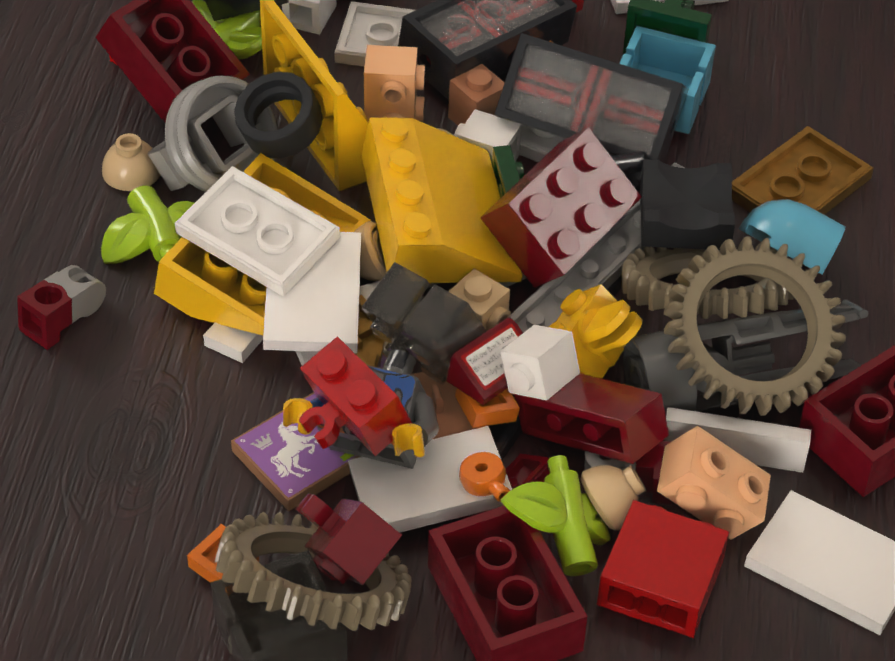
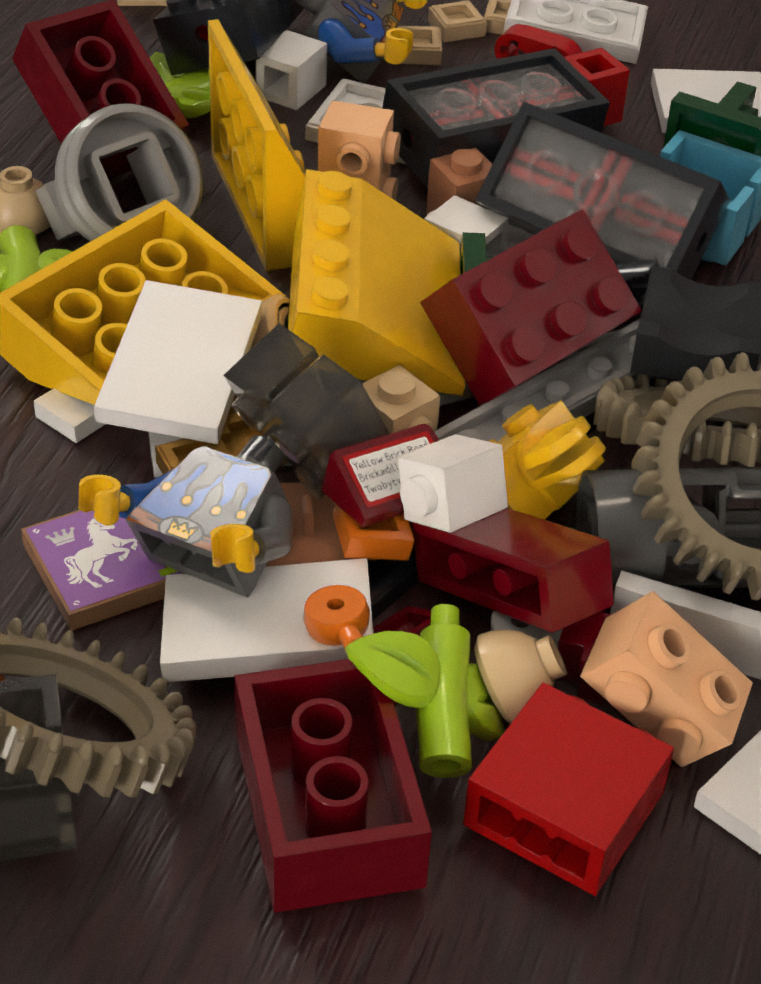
camera: 10 degrees right, 5 degrees down
(257, 230) = (127, 278): white tile -> none
(263, 93) = (184, 132): black tyre -> none
(348, 538) = (111, 663): dark red brick -> none
(350, 398) = (172, 481): red brick -> none

